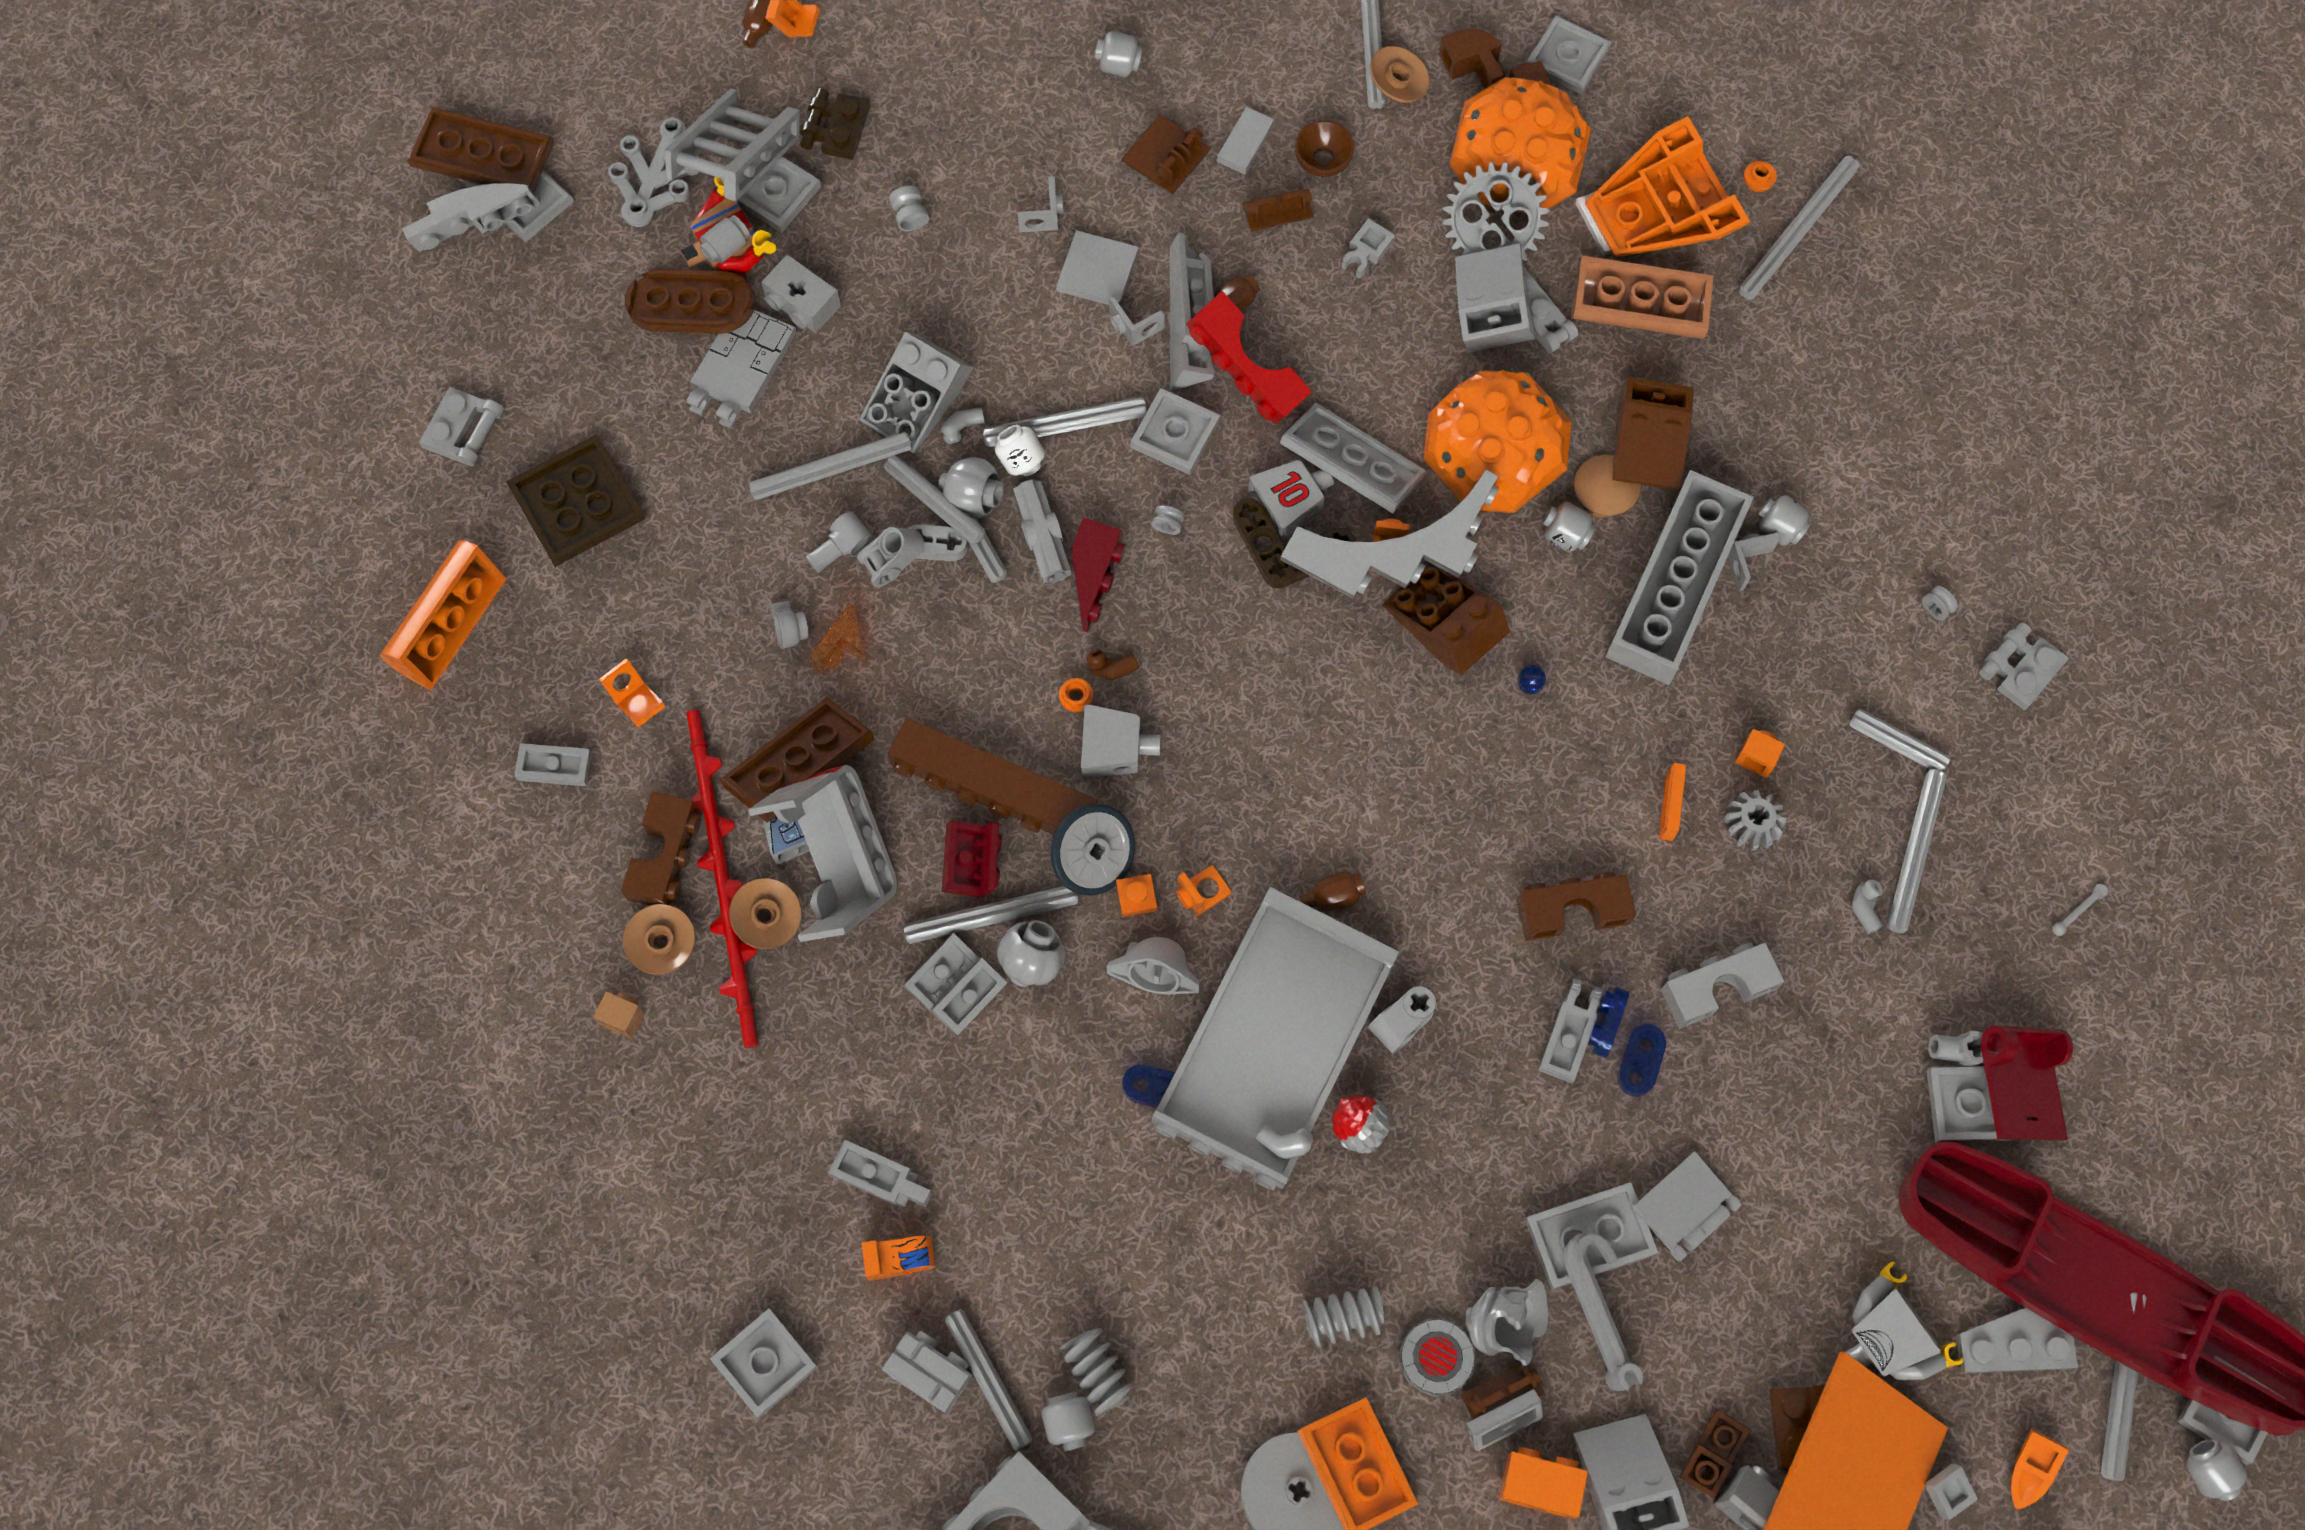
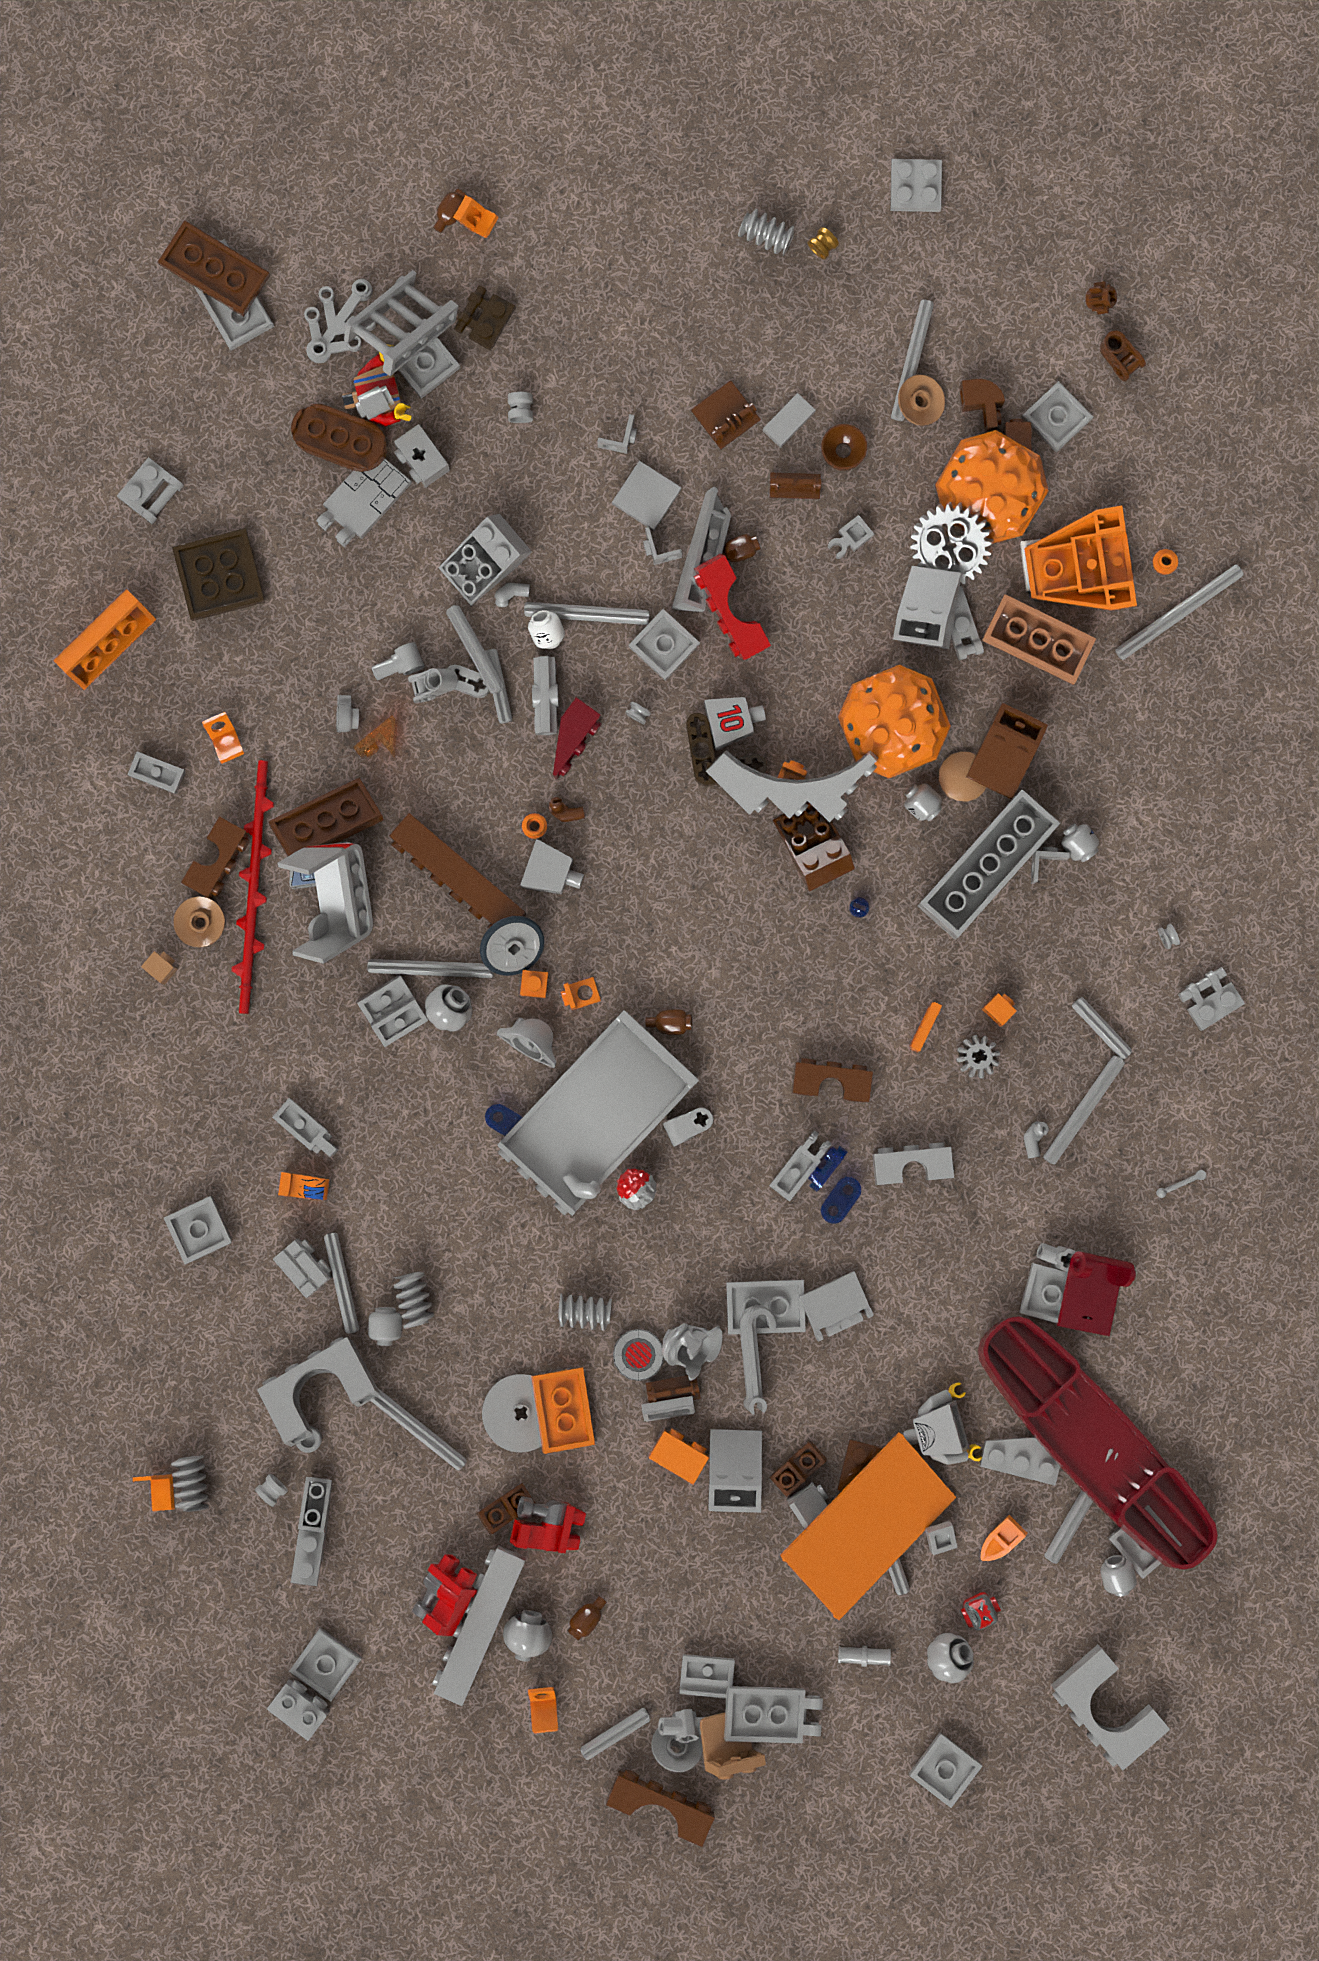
camera: 15 degrees right, 15 degrees up
(479, 205) = (202, 318): light grey slope -> none
(767, 896) = (289, 927): medium nougat dish -> none
(830, 465) = (407, 600): light grey axle -> none
(971, 485) = (504, 648): light grey plant -> none
(971, 859) = (427, 926): dark red bracket -> none
(1118, 54) = (714, 321): light grey head -> none
(1353, 457) = (786, 703): light grey tile -> none

